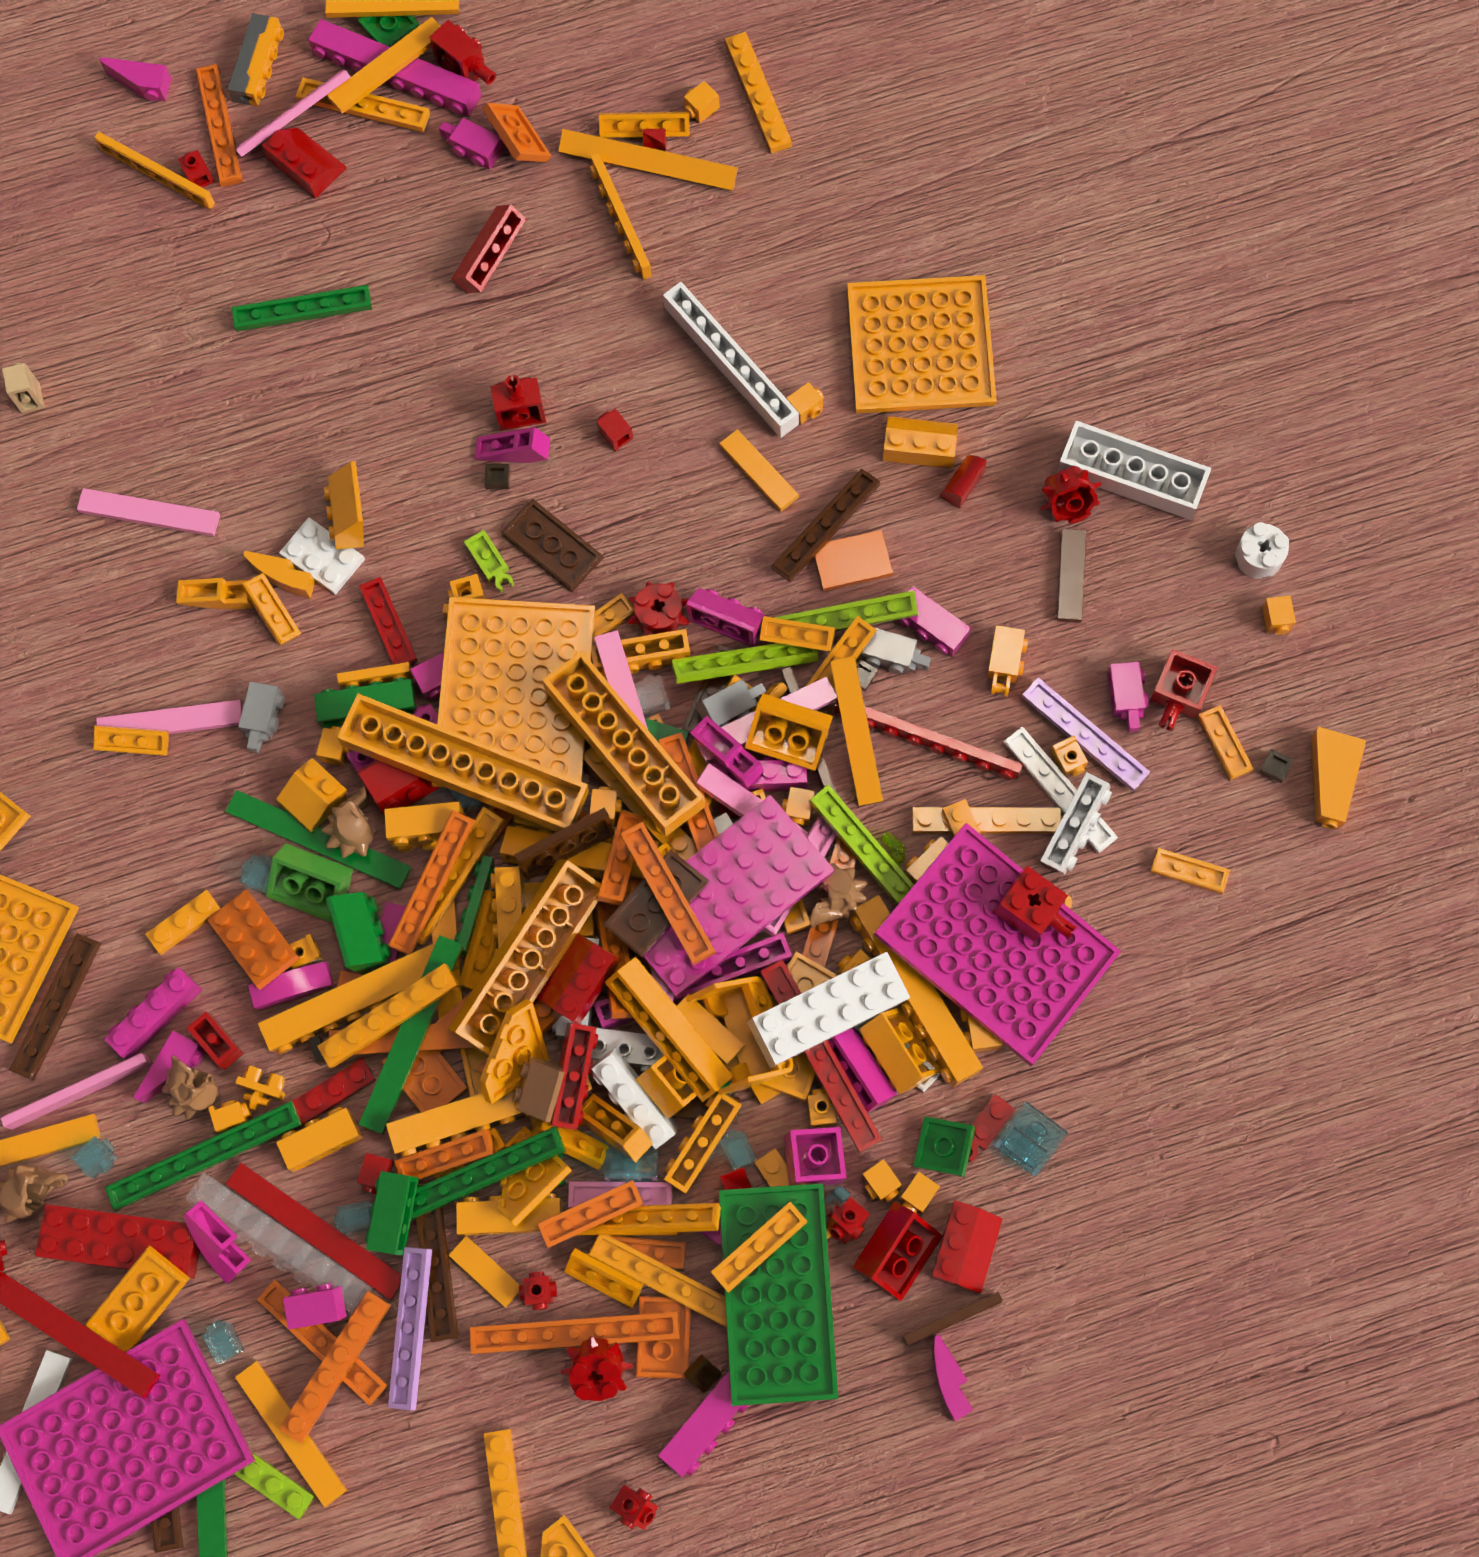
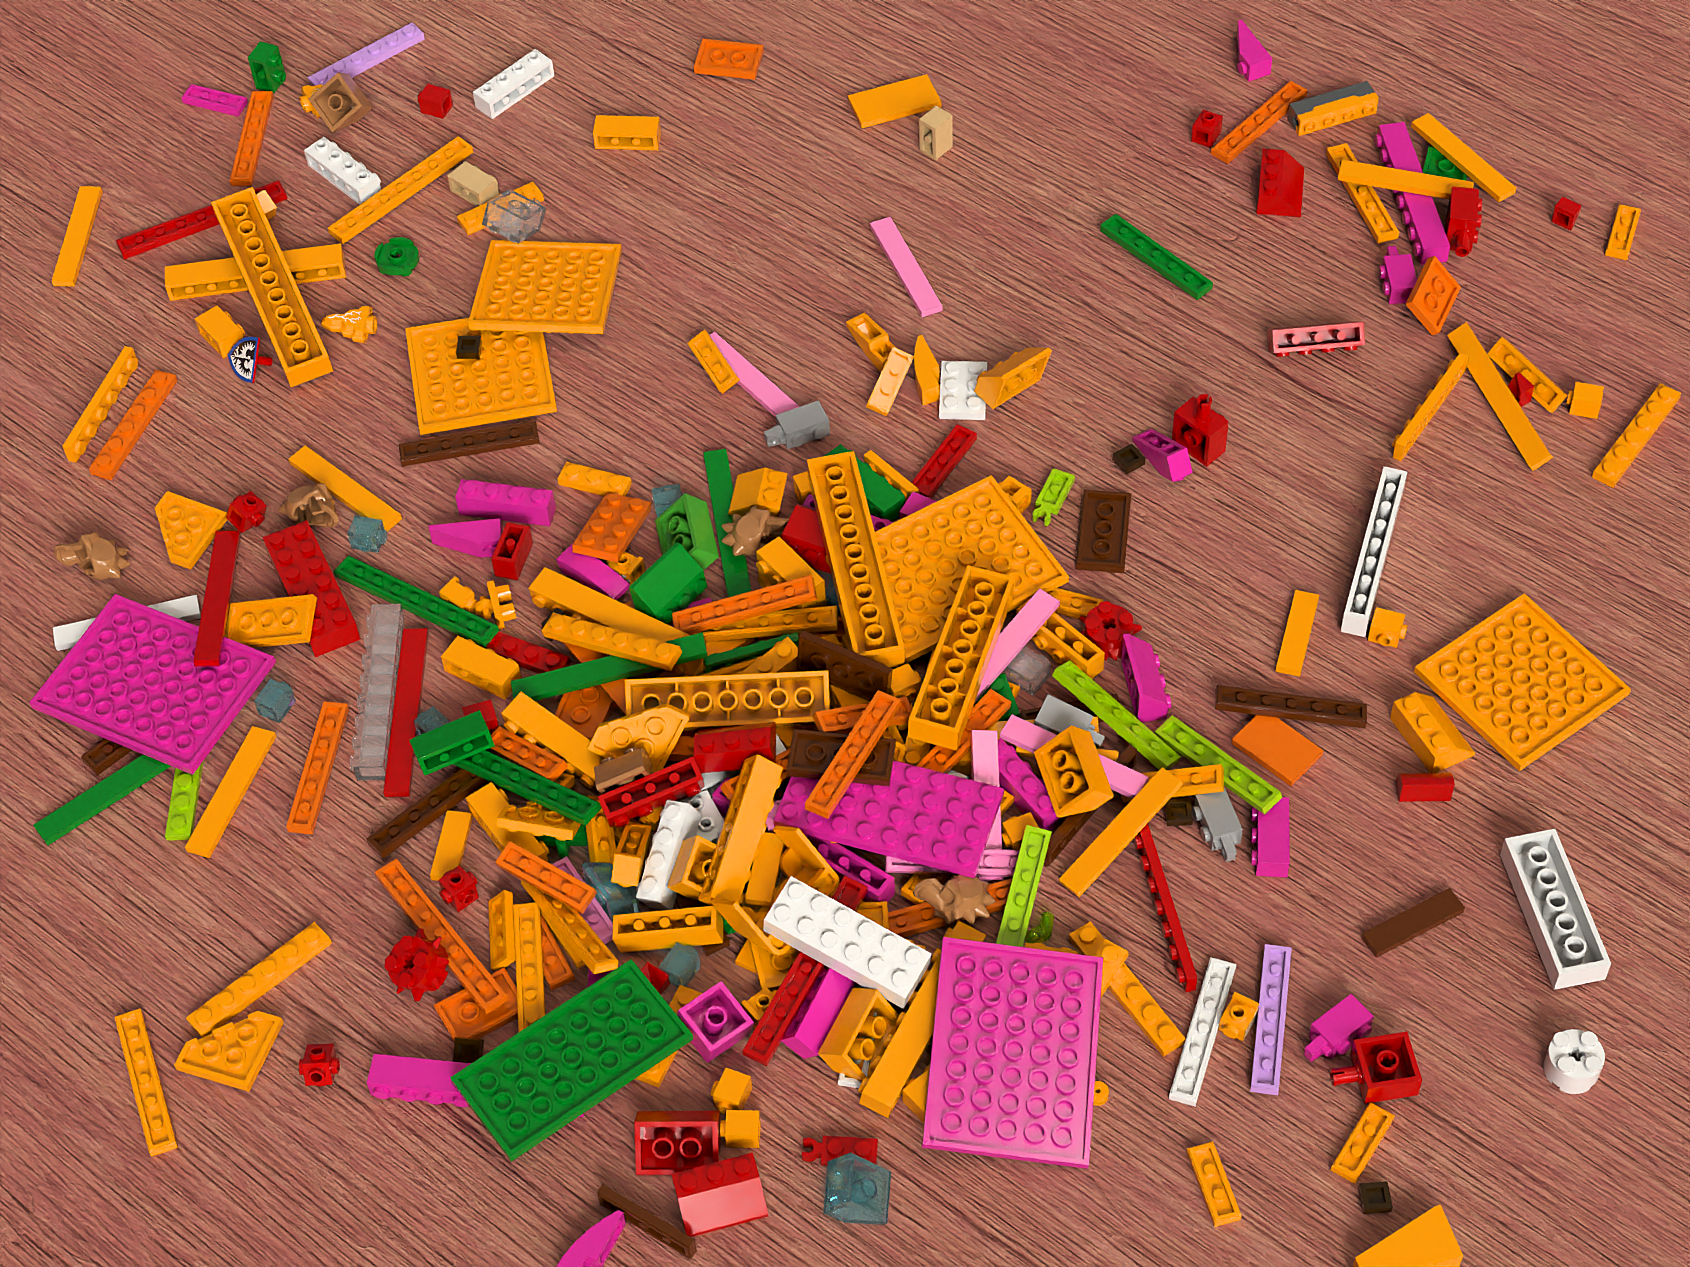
camera: 55 degrees right, 20 degrees down
(76, 1091) = (408, 491): bright pink tile -> none
(154, 170) = (1183, 106): light orange tile -> none
(189, 1089) = (459, 555): medium nougat head -> none
(216, 1242) = (350, 644): dark pink slope -> none
(292, 112) = (1309, 151): bright pink tile -> none
(314, 1306) = (340, 734): dark pink brick -> none
(334, 1367) = (302, 783): orange plate -> none
(410, 1328) = (367, 816): lavender plate -> none
(614, 429) = (1240, 511): red brick -> none
(727, 751) = (1018, 740): dark pink slope -> none
(759, 1247) = (600, 1013): light orange plate -> none
(797, 633) = (1170, 736): light orange plate -> none
(839, 1193) = (697, 1067): clear light blue hand -> none
(847, 1221) = (676, 1083): red brick -> none
(944, 1146) = (798, 1122): green plate -> none
(1005, 658) = (1287, 912): light orange brick -> none
(1045, 907) = (1067, 1066): red brick -> none
(1070, 495) = (1482, 868): red brick -> none
(1076, 823) = (1175, 1050): white brick -> none
(1278, 615) = (1525, 1113): light orange brick -> none

